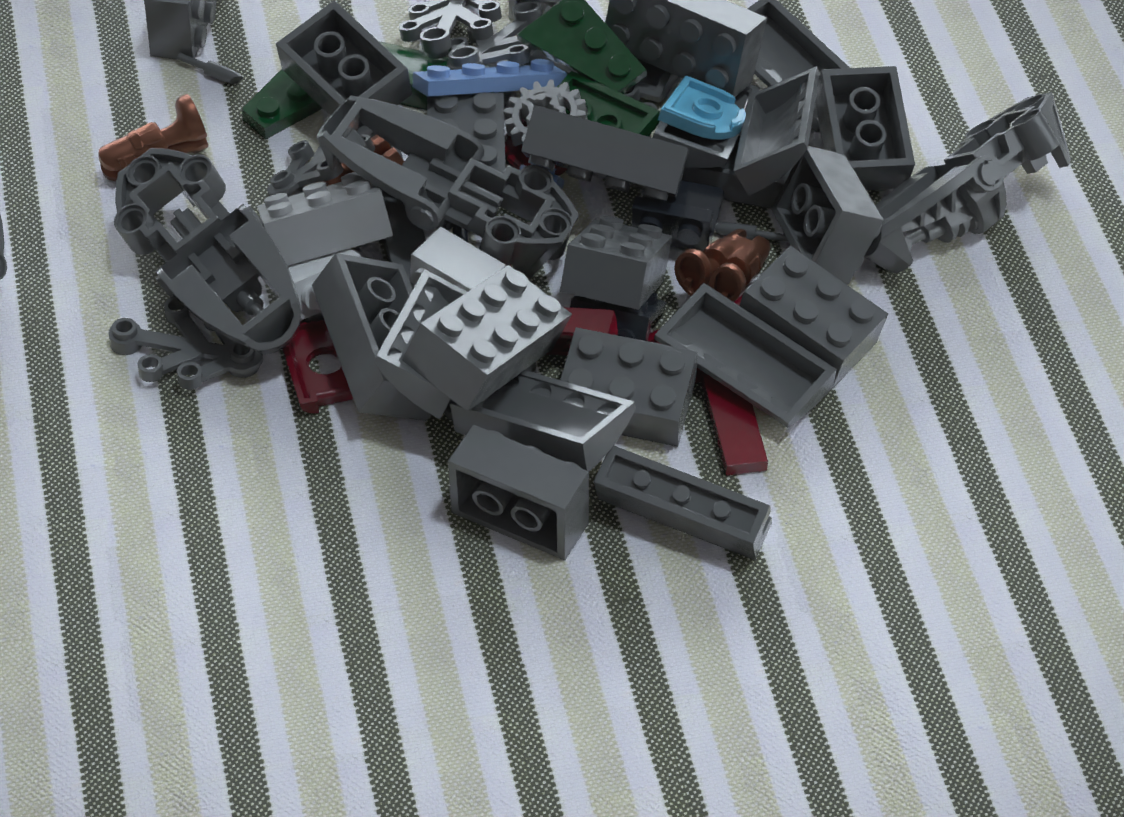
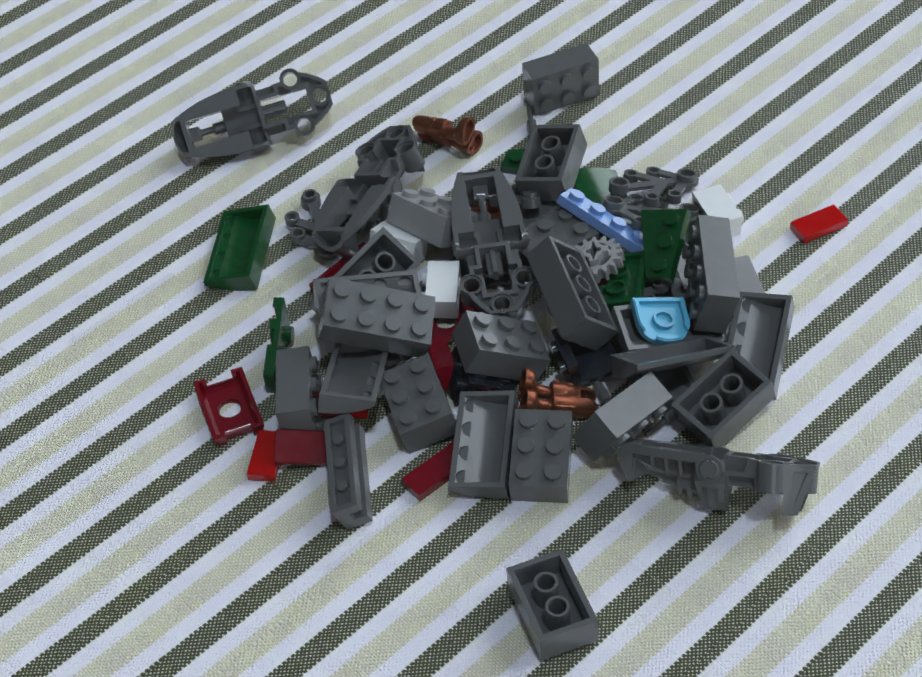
camera: 65 degrees right, 0 degrees up
(149, 446) = (240, 249): none -> dark green slope
(395, 480) = (280, 337): none -> dark green wing
(421, 564) = (217, 395): none -> dark red piece
(567, 583) = (262, 459): none -> red tile
(597, 536) = (300, 447): none -> dark red slope
(1039, 413) = (552, 604): none -> dark grey brick

